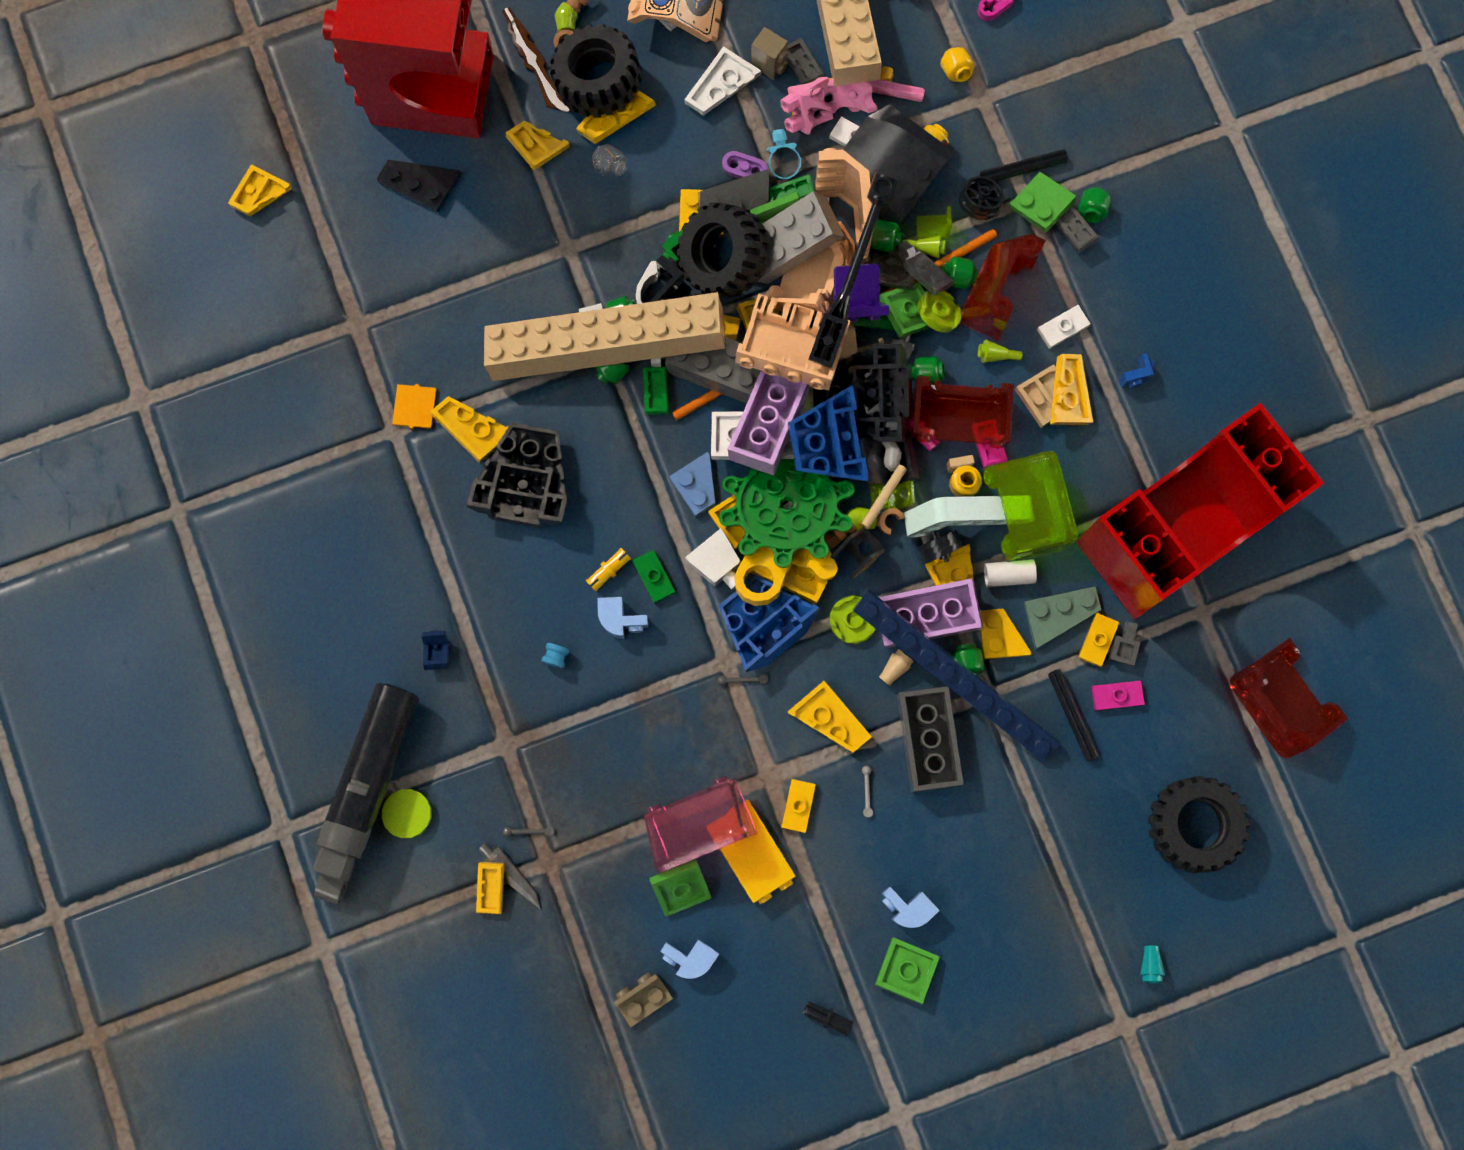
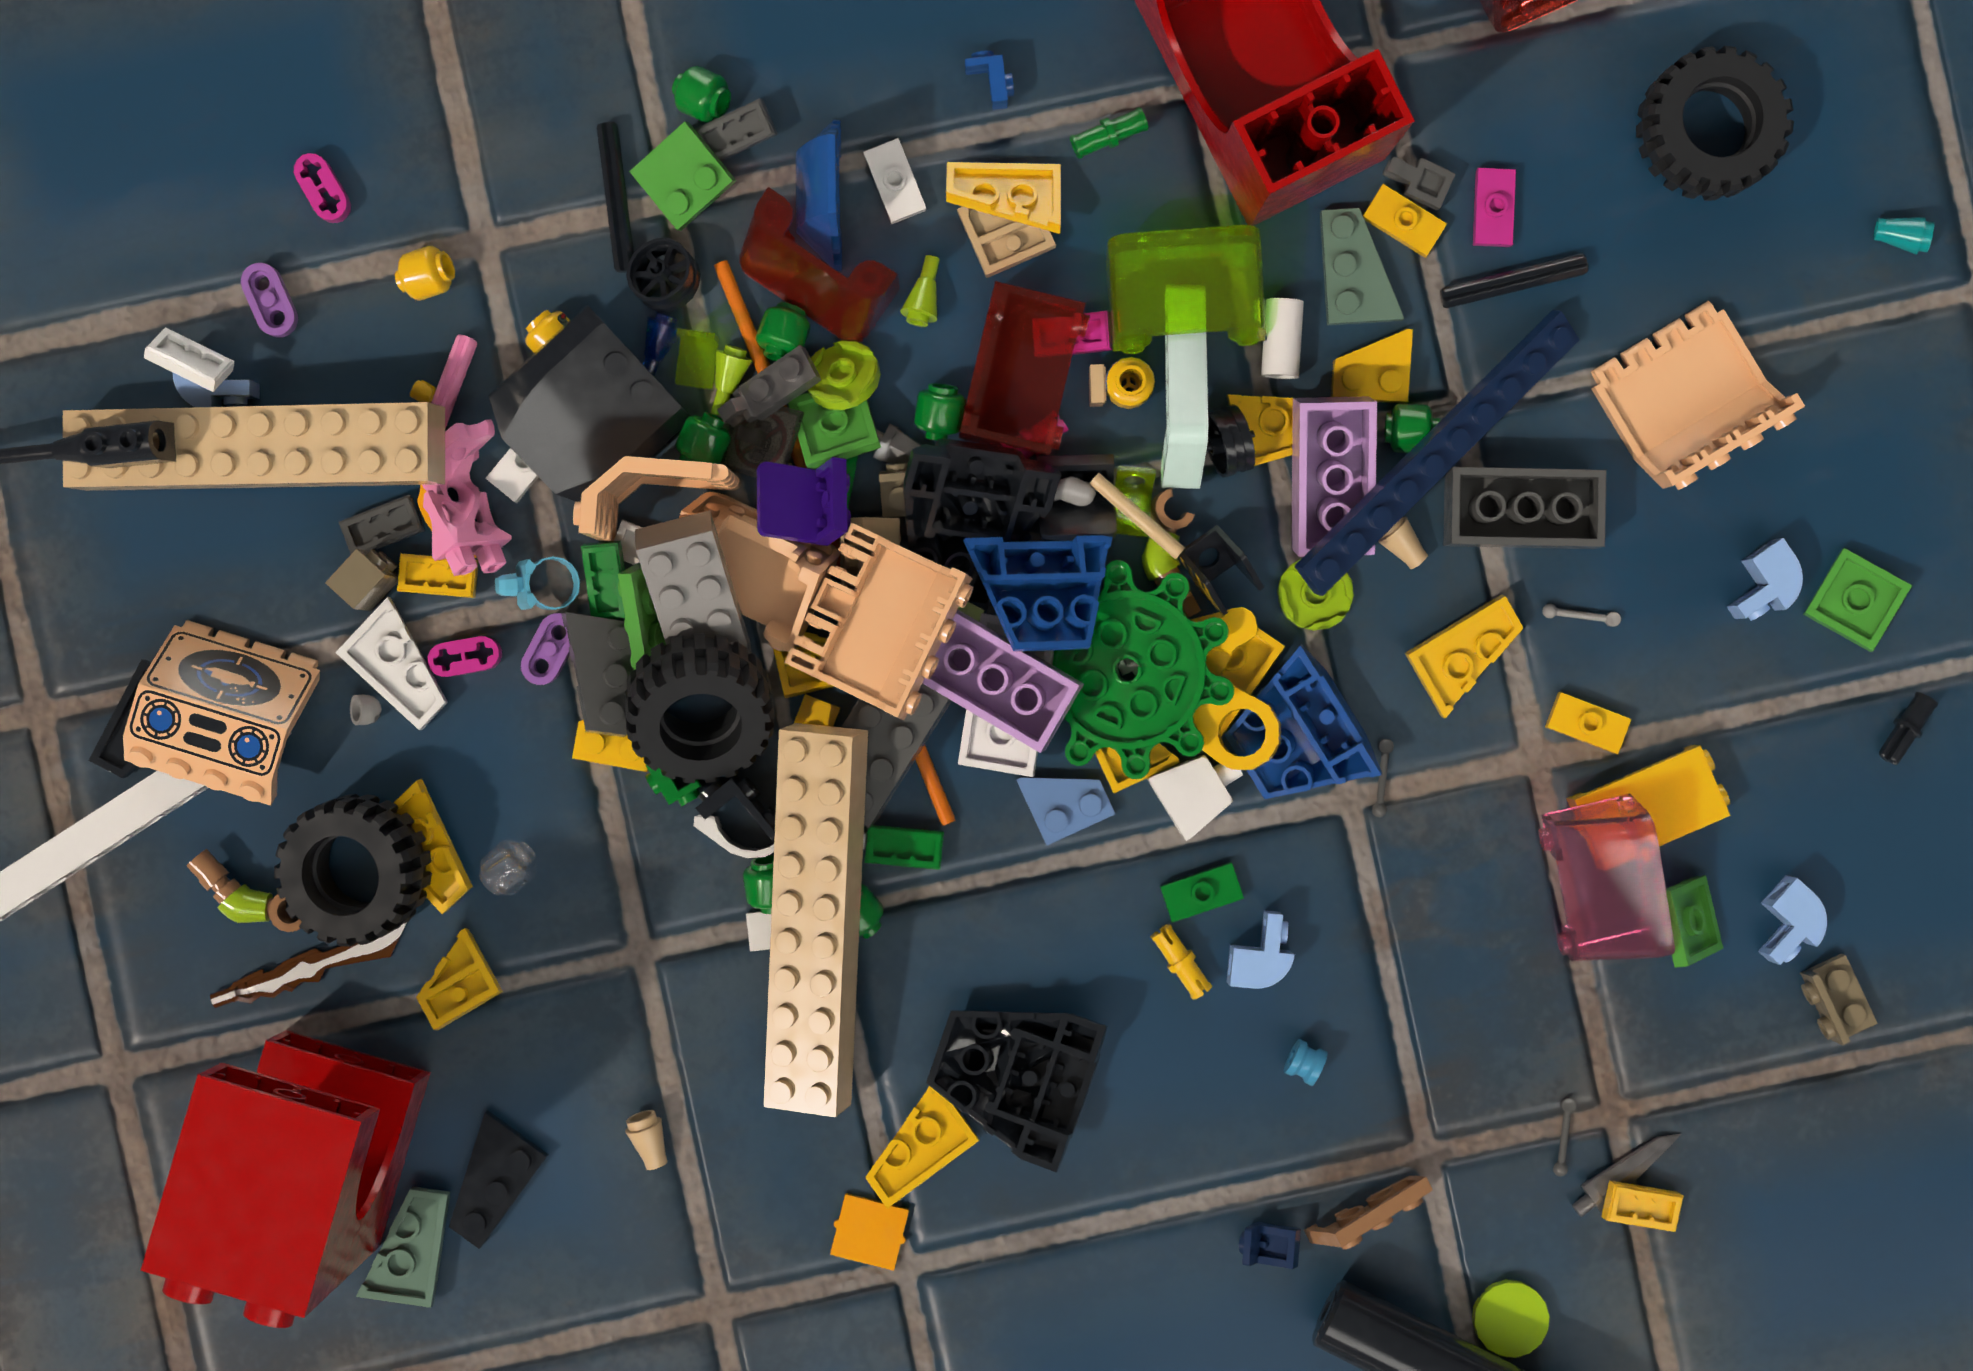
camera: 80 degrees left, 10 degrees up
(369, 141) = (411, 1254): none -> sand green wing
(457, 265) = (647, 1136): none -> tan cone
(463, 712) = (1378, 1214): none -> medium nougat wing
(692, 69) = (364, 709): none -> light grey hinge
(728, 122) = (463, 647): none -> dark pink beam
(776, 90) = (433, 577): none -> yellow plate
(835, 321) = (858, 547): black bar -> none
(940, 202) = (659, 339): none -> clear blue cone
(1020, 838) = (1690, 397): none -> light nougat hinge
(1050, 278) = (820, 194): none -> blue wedge
(1118, 449) = (1109, 132): none -> green pin

